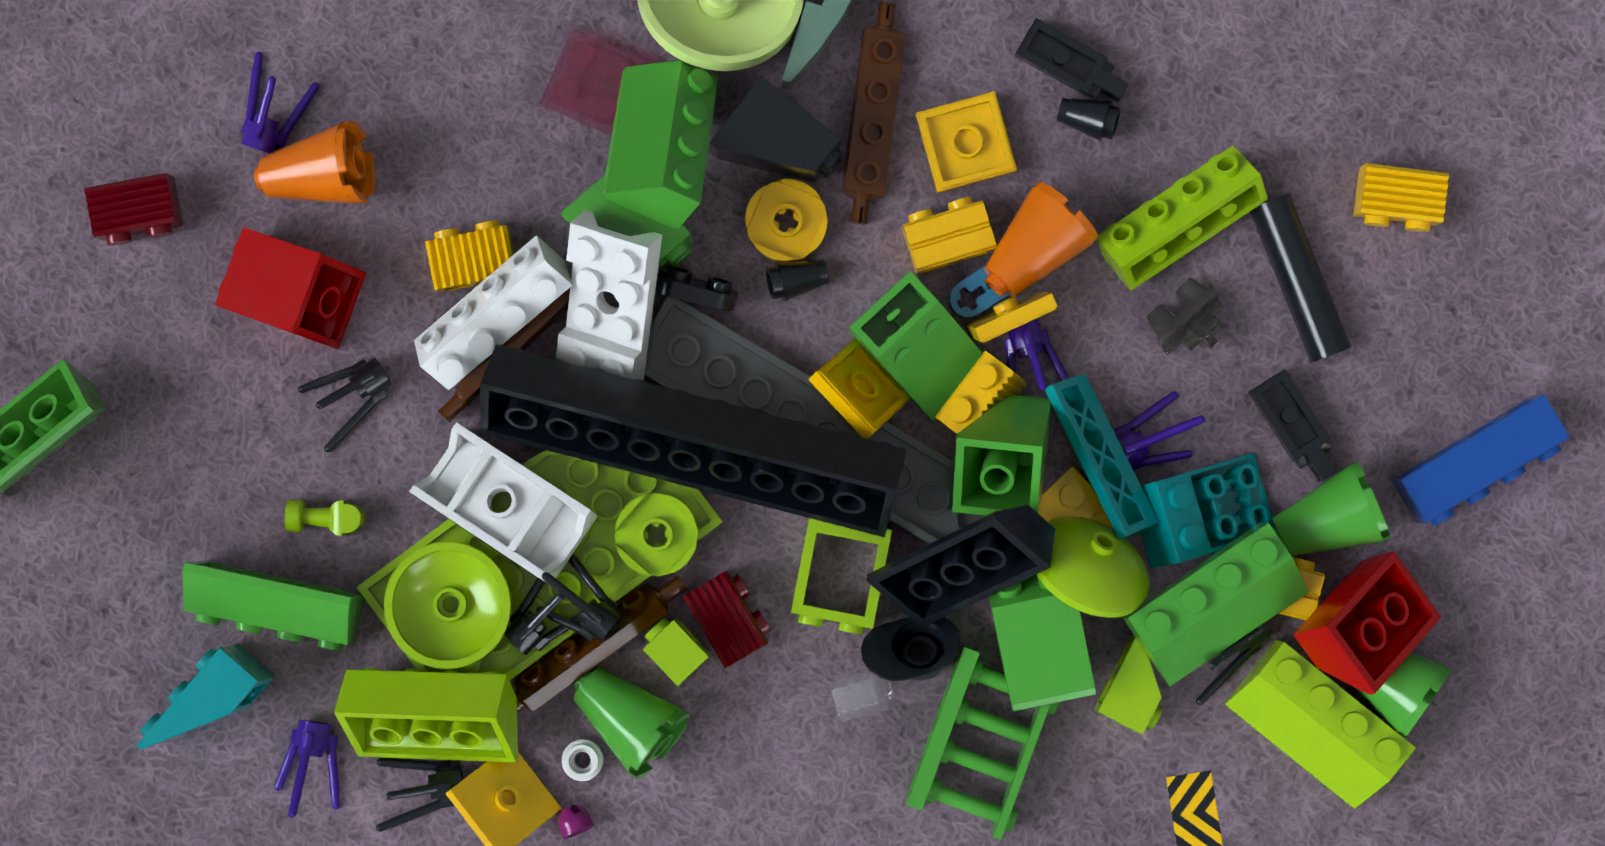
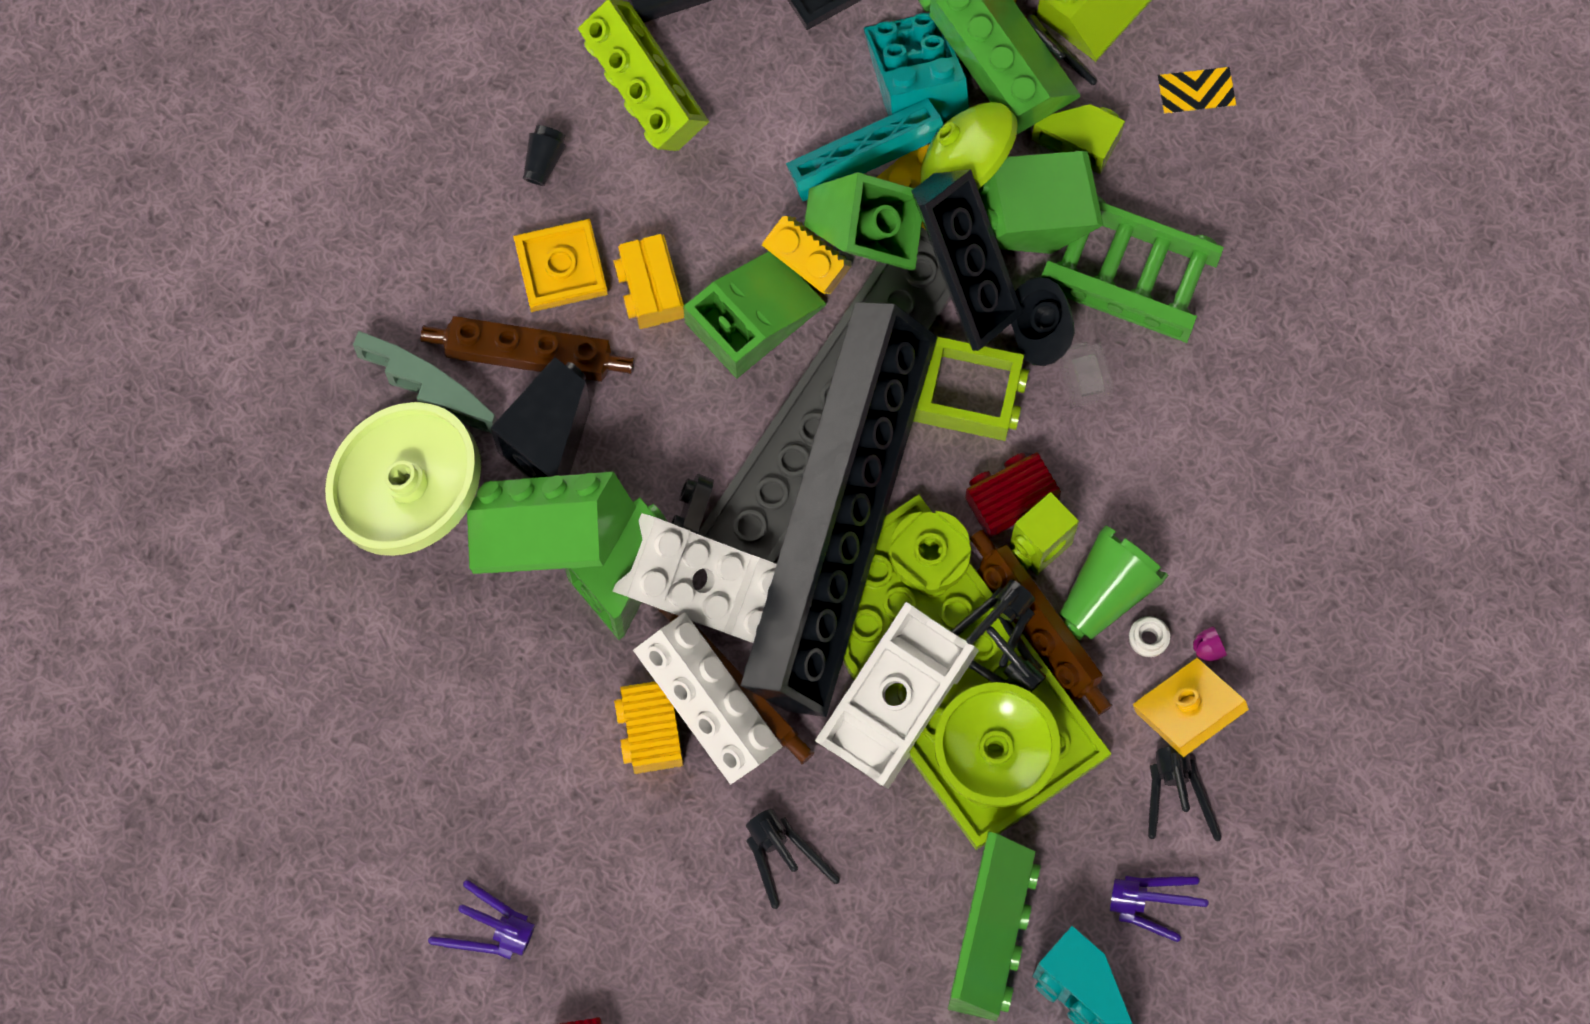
camera: 90 degrees left, 15 degrees down
(290, 288) = (671, 908): red slope -> none
(320, 168) = (553, 874): orange cone -> none
(339, 518) = (906, 865): lime leg -> none
(429, 715) = (1105, 771): lime slope -> none
(588, 81) = (482, 610): clear pink plate -> none
(777, 199) = (618, 410): yellow plate -> none
(794, 278) = (683, 423): black cone -> none
(859, 389) = (794, 361): yellow plate -> none
(970, 284) = (692, 258): dark azure beam -> none
(1010, 315) = (729, 220): yellow plate -> none
(1028, 342) = (752, 213): dark purple plant -> none
(1037, 241) = (658, 195): orange cone -> none
(1070, 62) = (489, 171): black hinge -> none
(1136, 445) = (851, 121): dark purple plant -> none
(1193, 323) = (723, 65): clear smoke hips -> none

